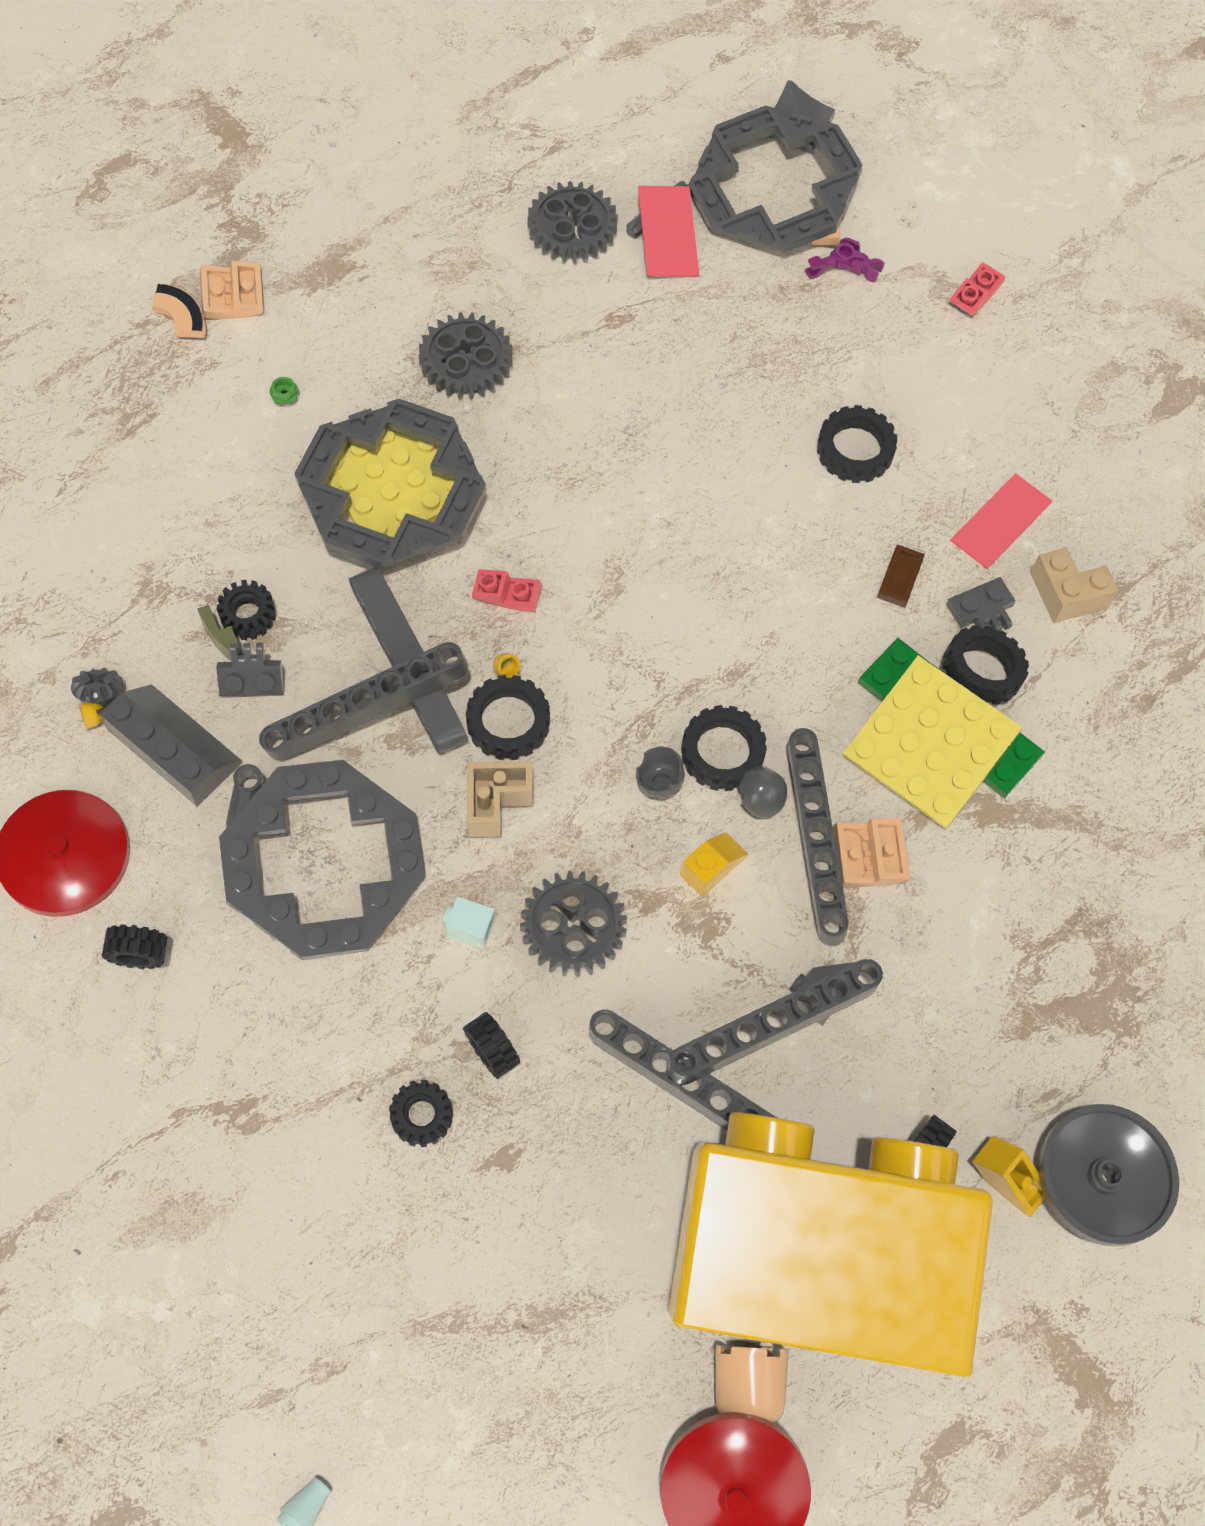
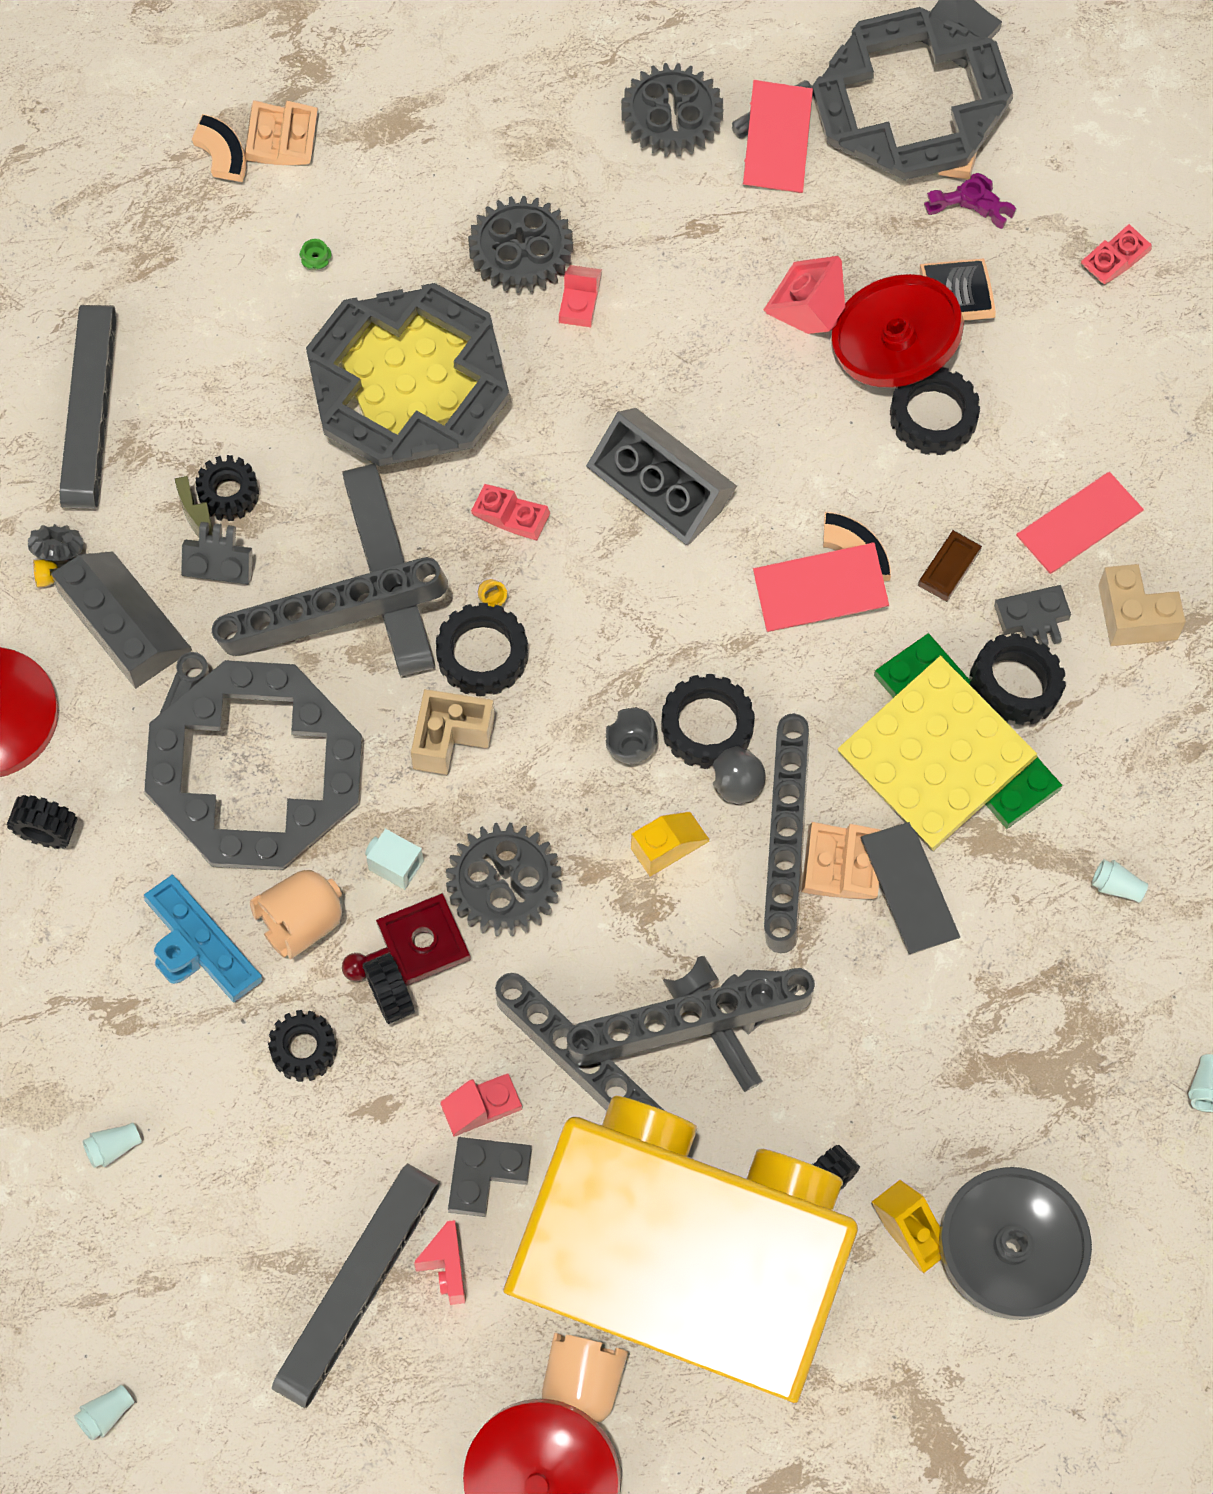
camera: 15 degrees right, 0 degrees up
(103, 558) = (88, 407): none -> dark grey beam
(258, 1243) = (109, 1144): none -> light aqua cone
(302, 1034) = (197, 942): none -> dark azure plate
(392, 988) = (298, 911): none -> light nougat cylinder
(487, 991) = (398, 934): none -> dark red plate
(518, 1336) = (355, 1286): none -> dark grey beam
(526, 393) = (579, 295): none -> coral slope
(596, 1137) = (480, 1104): none -> coral slope
(597, 1286) = (444, 1253): none -> coral slope
(607, 1193) = (478, 1164): none -> dark grey plate
(633, 537) = (660, 475): none -> dark grey slope
(728, 361) = (810, 295): none -> coral slope
(770, 991) = (702, 979): none -> dark grey piece
(794, 612) = (820, 587): none -> coral piece
(811, 380) = (898, 330): none -> red dish
(817, 570) = (845, 532): none -> tile
(851, 339) = (968, 282): none -> slope
(935, 866) = (910, 887): none -> dark grey piece
(1113, 828) = (1118, 881): none -> light aqua cone

